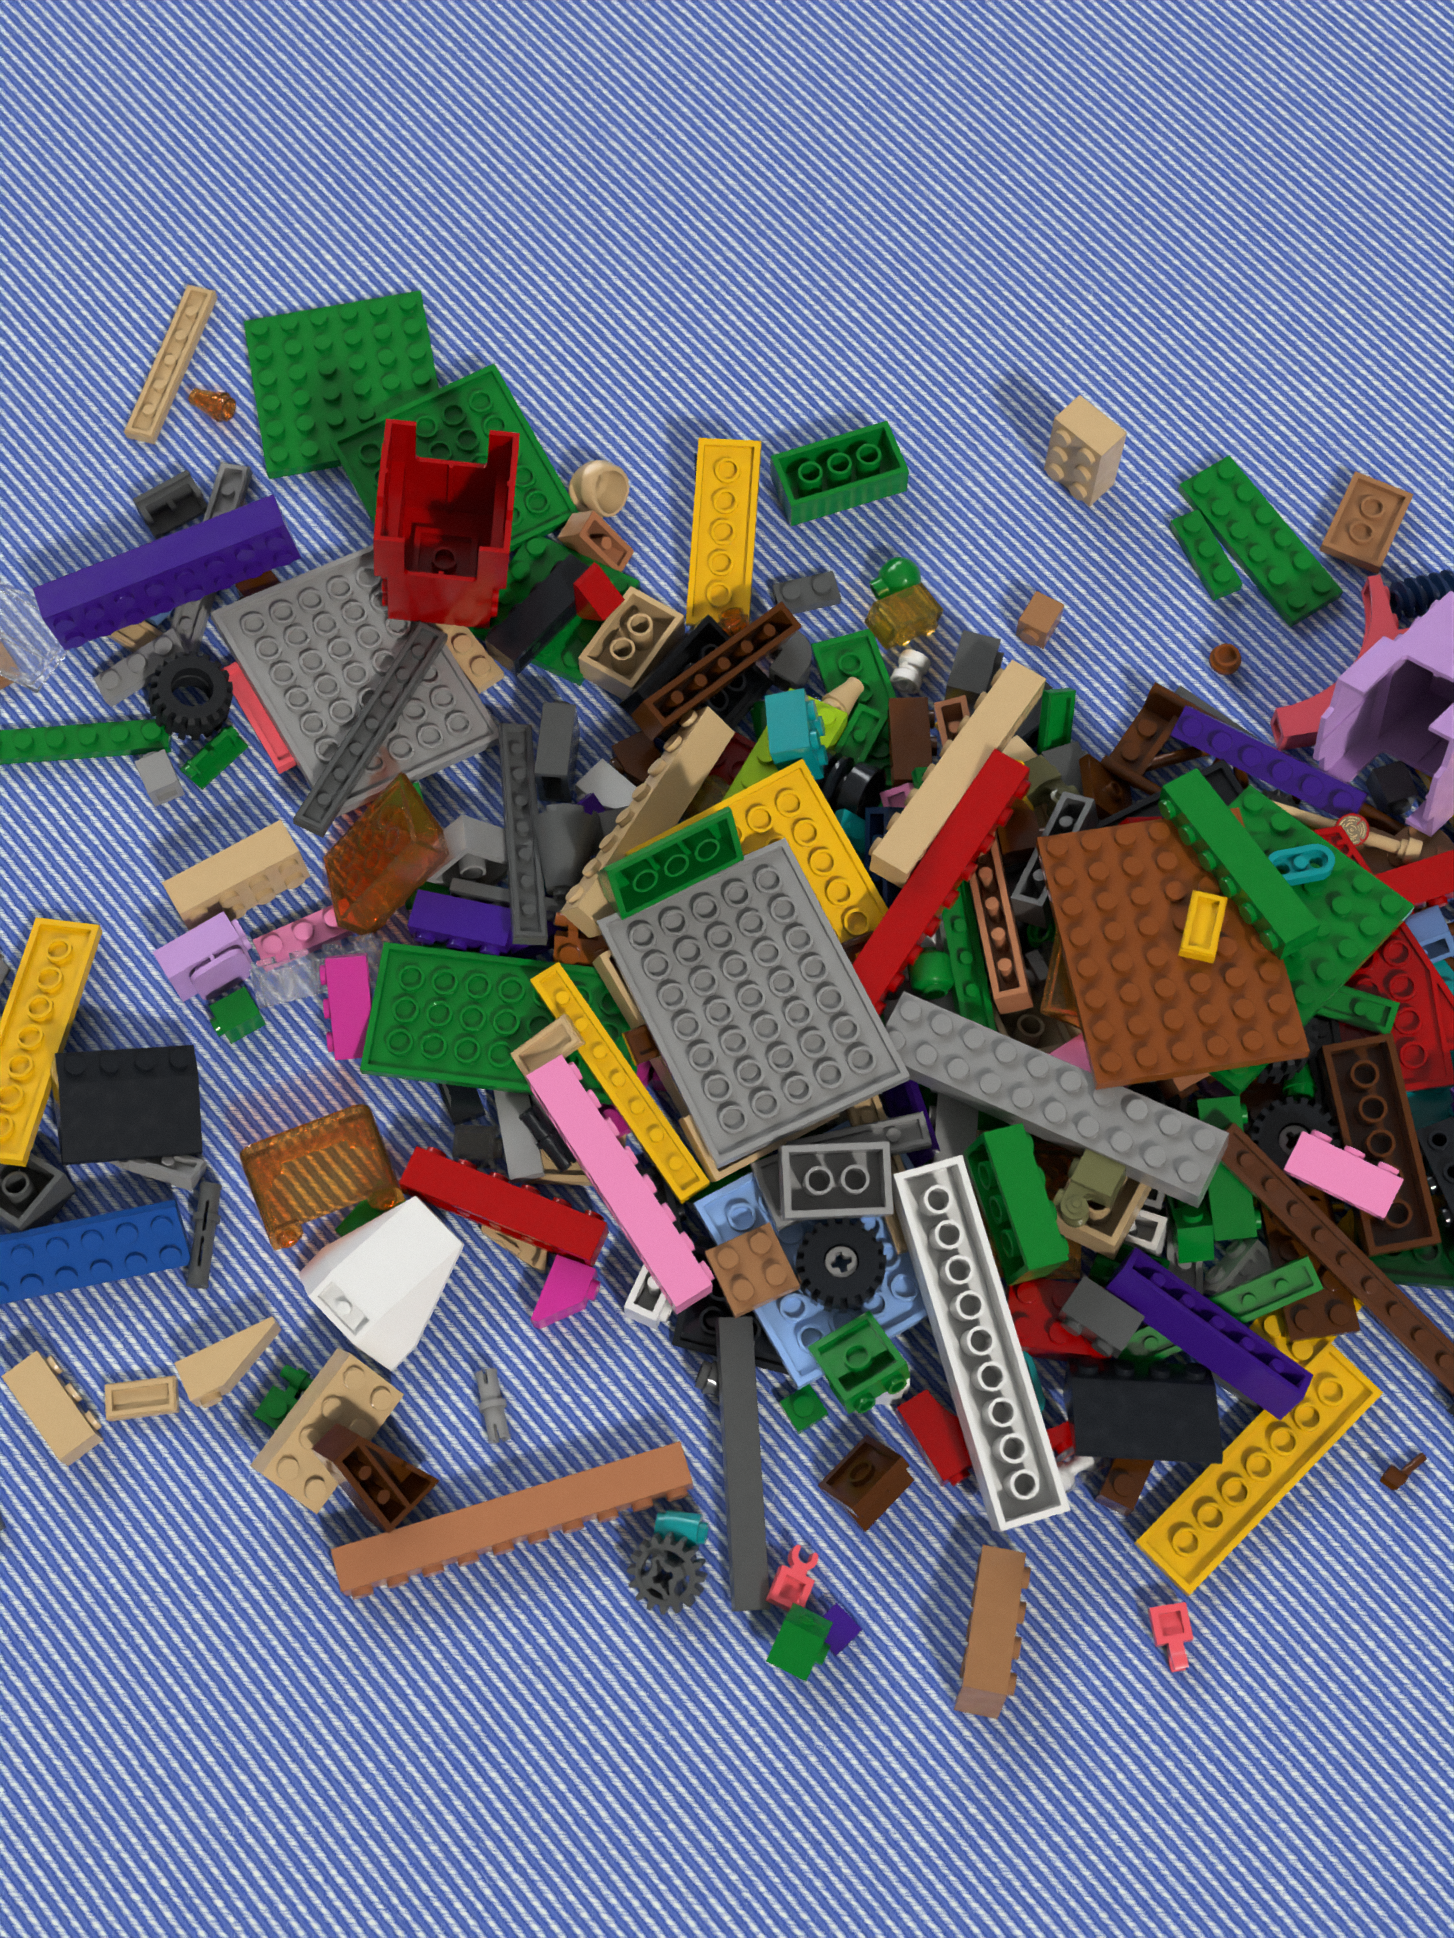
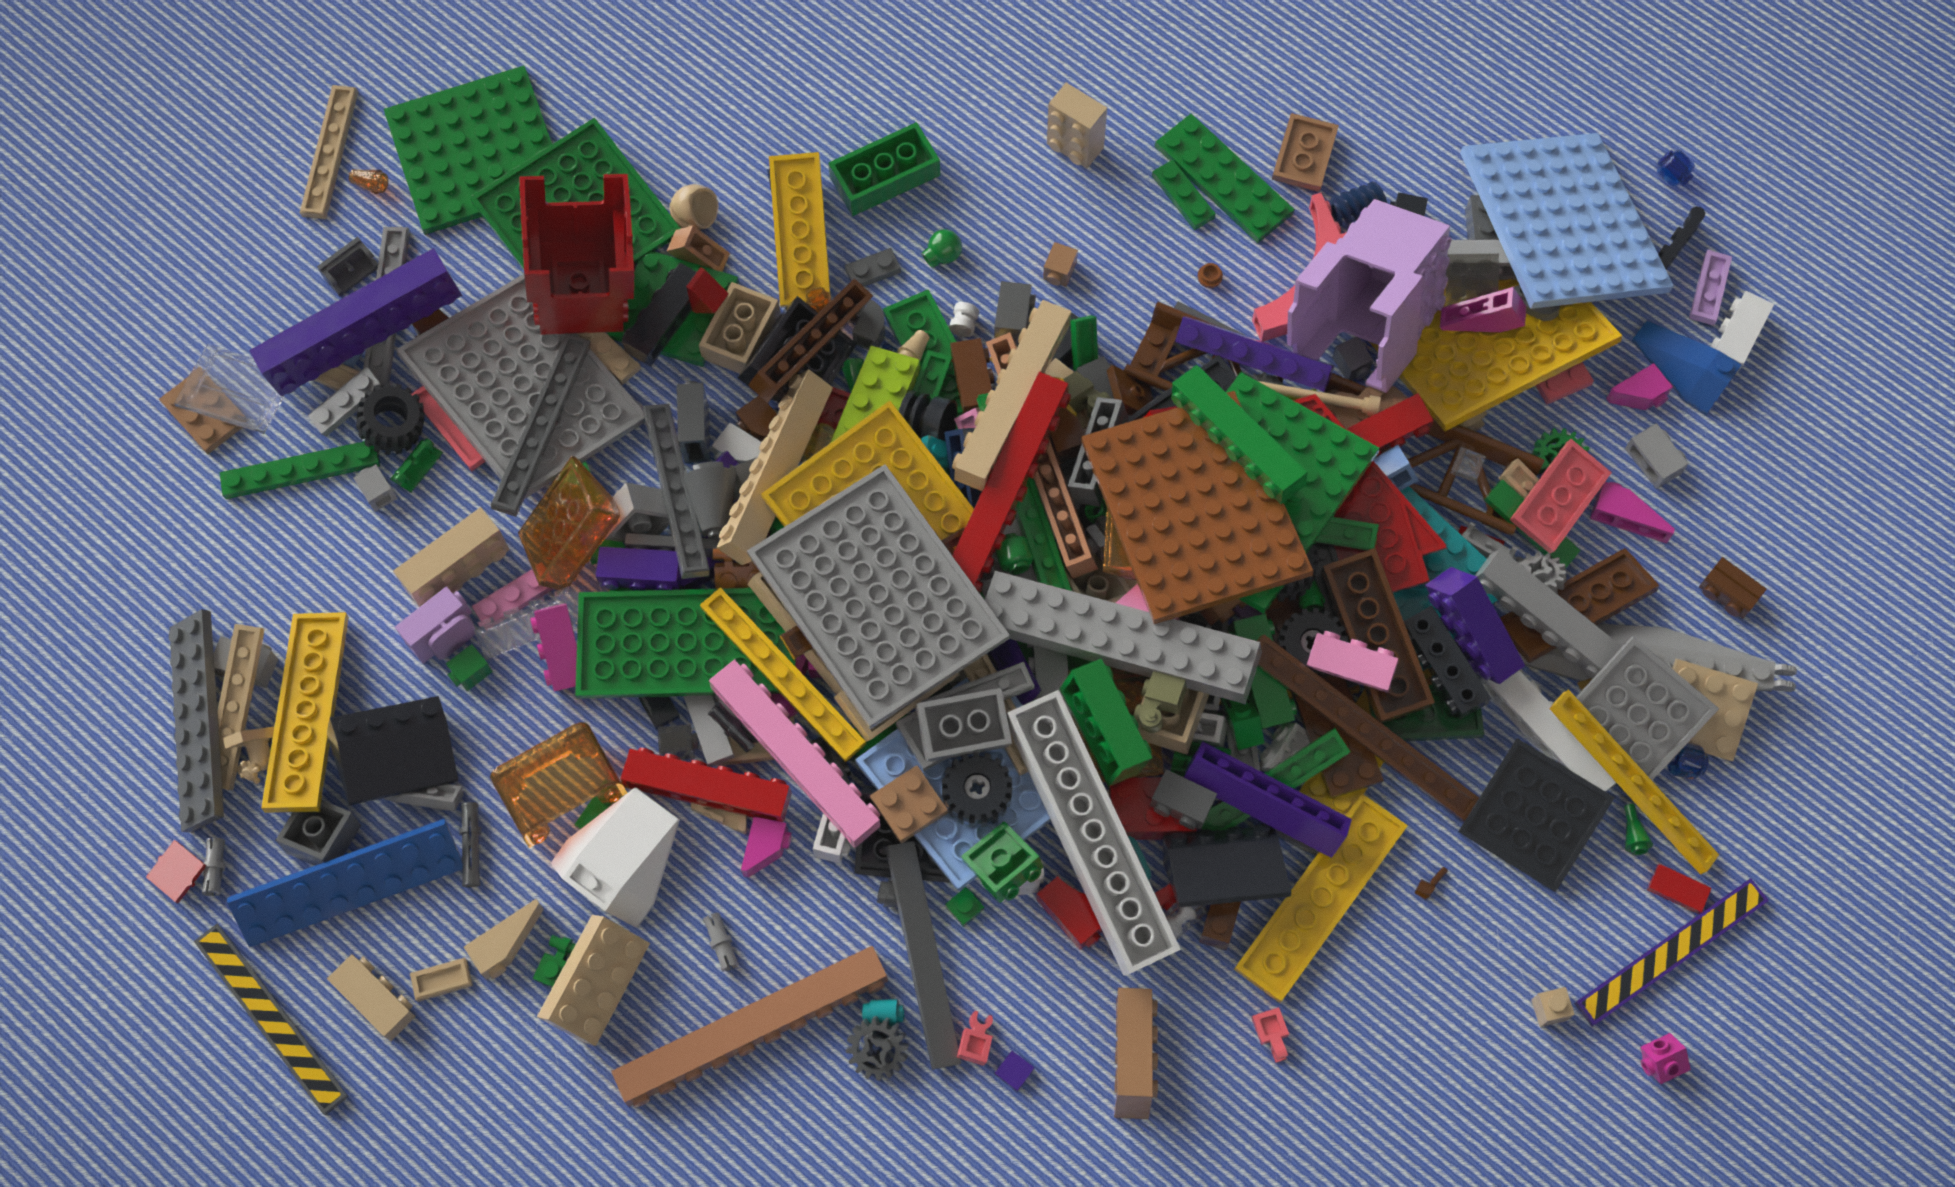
camera: 10 degrees left, 0 degrees up
(372, 1477) = (635, 1009): reddish brown wedge -> none
(552, 1041) = (725, 650): tan tile -> none
(672, 864) = (799, 497): green slope -> none
(795, 731) = (881, 379): teal brick -> none
(800, 1642) = (988, 1084): green head -> none
(867, 1481) = (1022, 954): reddish brown bracket -> none
(904, 616) = (952, 276): clear yellow brick -> none
(1203, 926) = (1218, 486): yellow tile -> none
(1297, 863) = (1285, 427): teal plate -> none
(1355, 827) = (1326, 393): tile -> none

